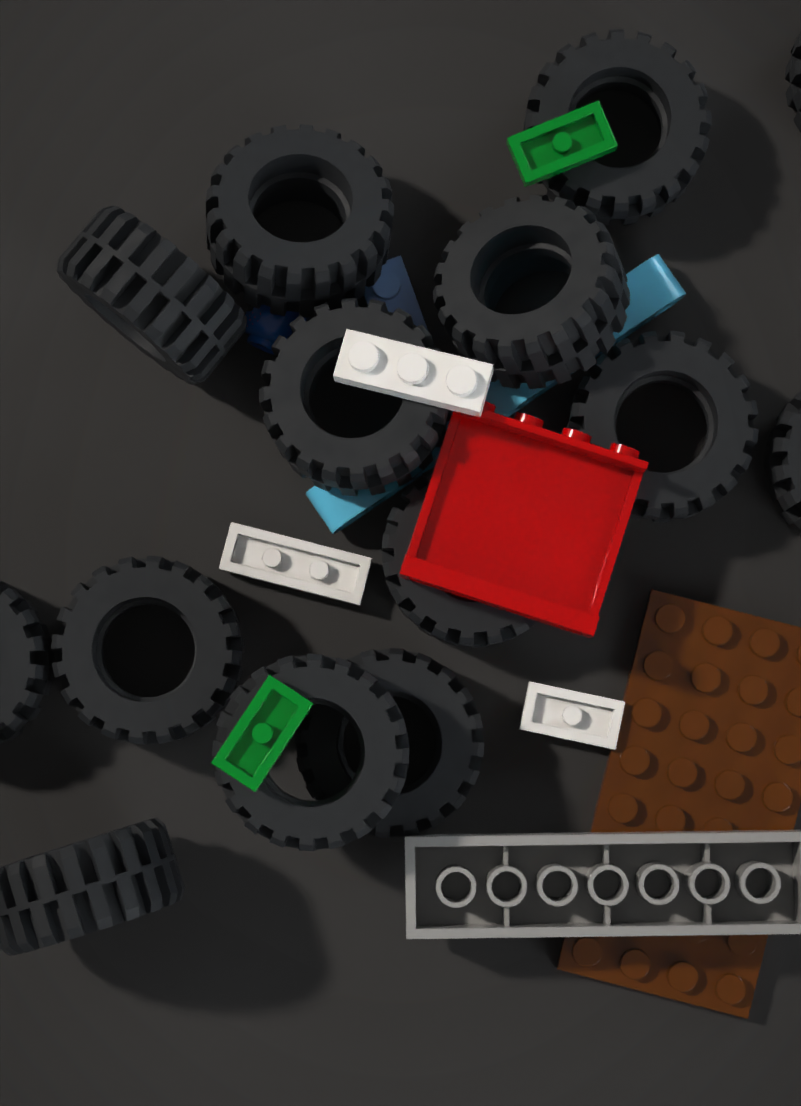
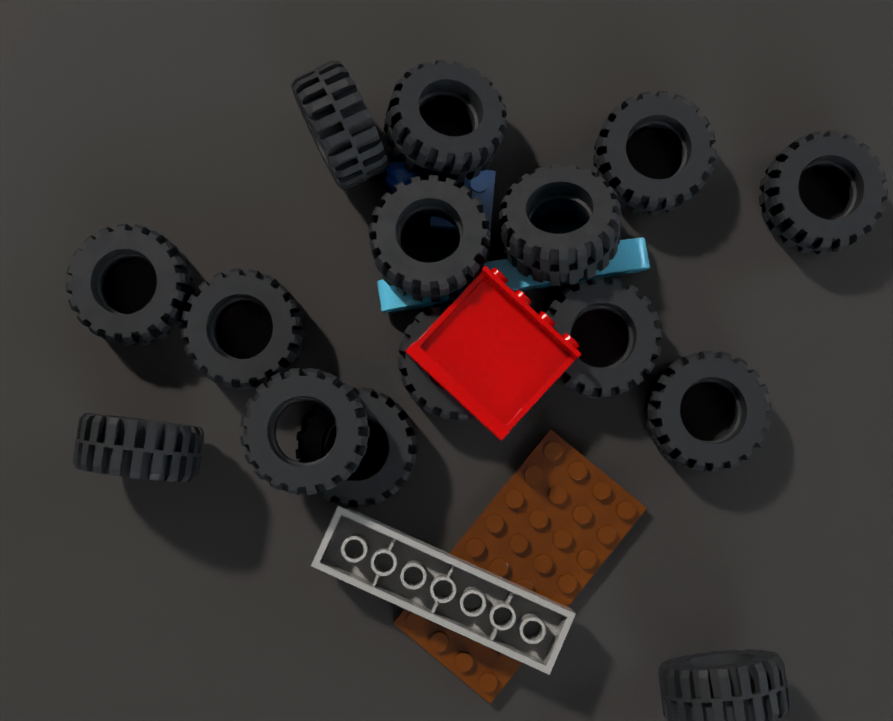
camera: 20 degrees right, 0 degrees up
(262, 733) = (278, 406): green plate -> none
(295, 563) = (352, 319): white plate -> none
(413, 373) = (468, 238): white plate -> none
(561, 144) = (617, 146): green plate -> none
(572, 715) = (470, 480): white plate -> none

